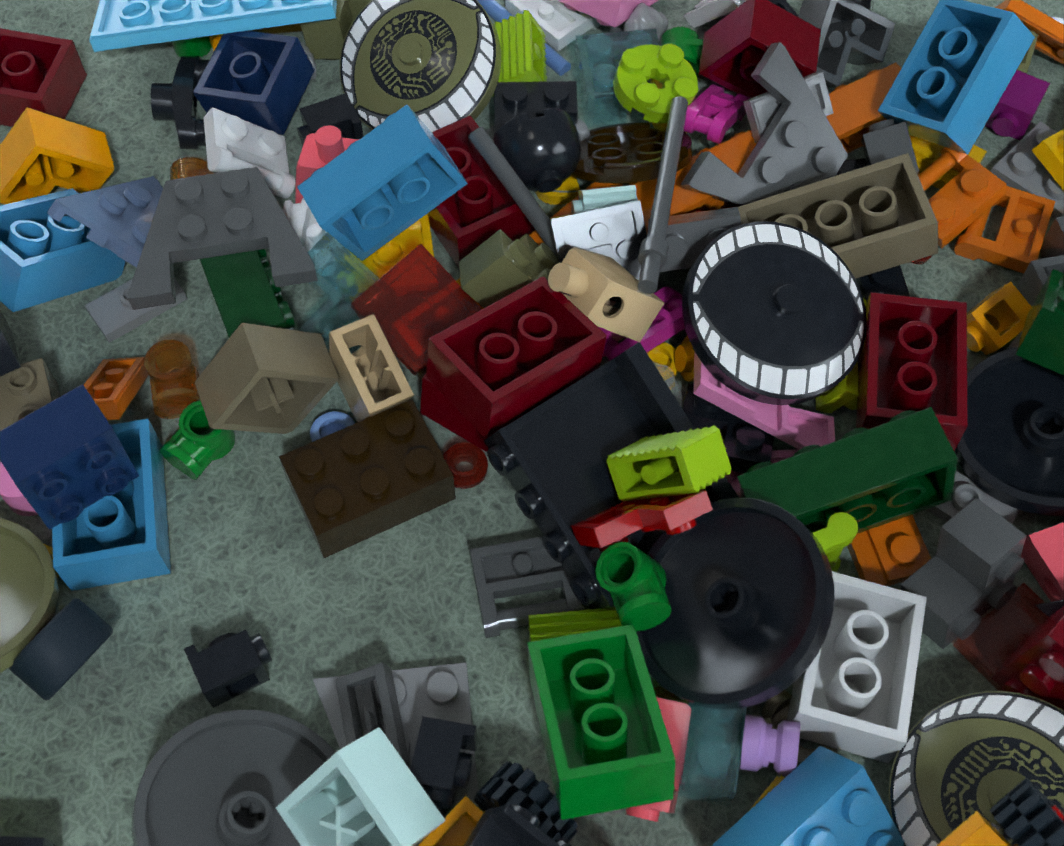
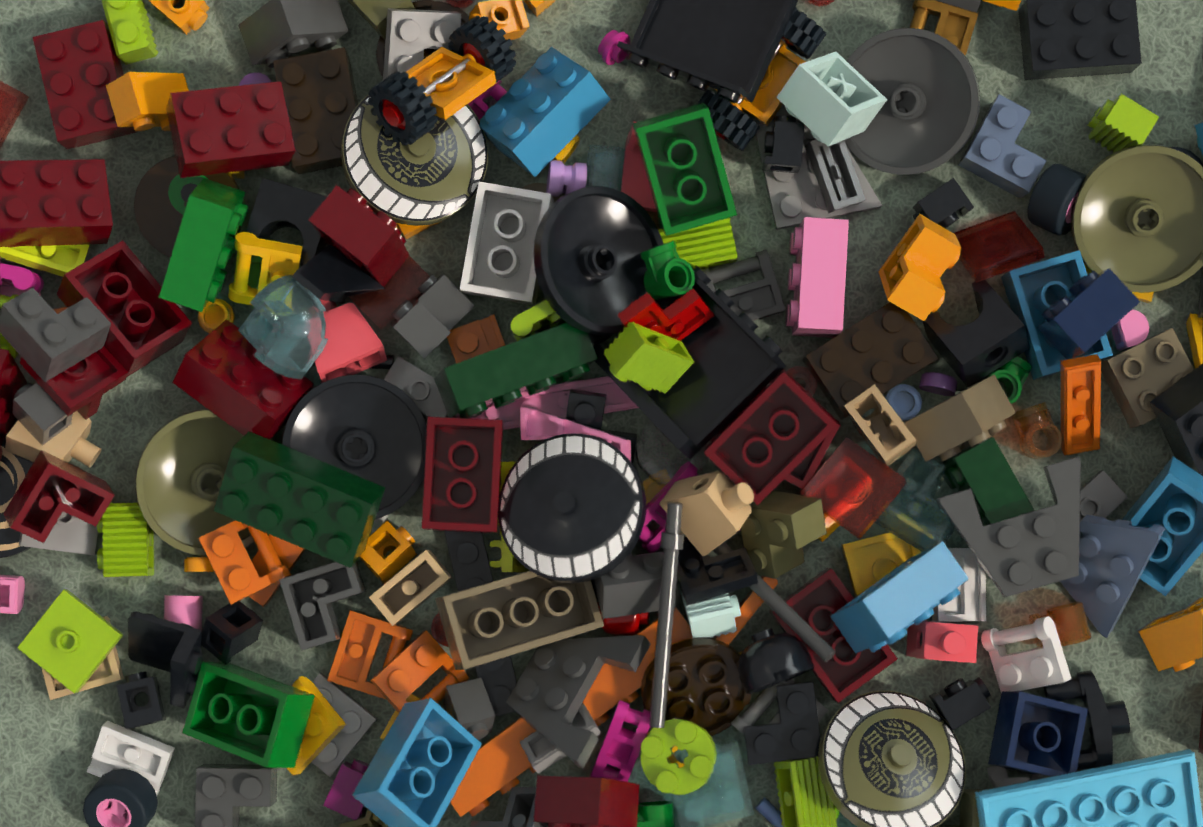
camera: 175 degrees right, 25 degrees up
(131, 733) = (994, 152): none -> sand blue brick
(166, 597) = (997, 246): none -> clear red tile
(217, 462) = (983, 344): none -> black piece
(280, 441) = (938, 383): none -> medium lavender tile
(286, 572) = (915, 267): none -> light orange brick
(420, 574) = (818, 277): none -> bright pink brick
(968, 270) = (410, 587): none -> tan brick

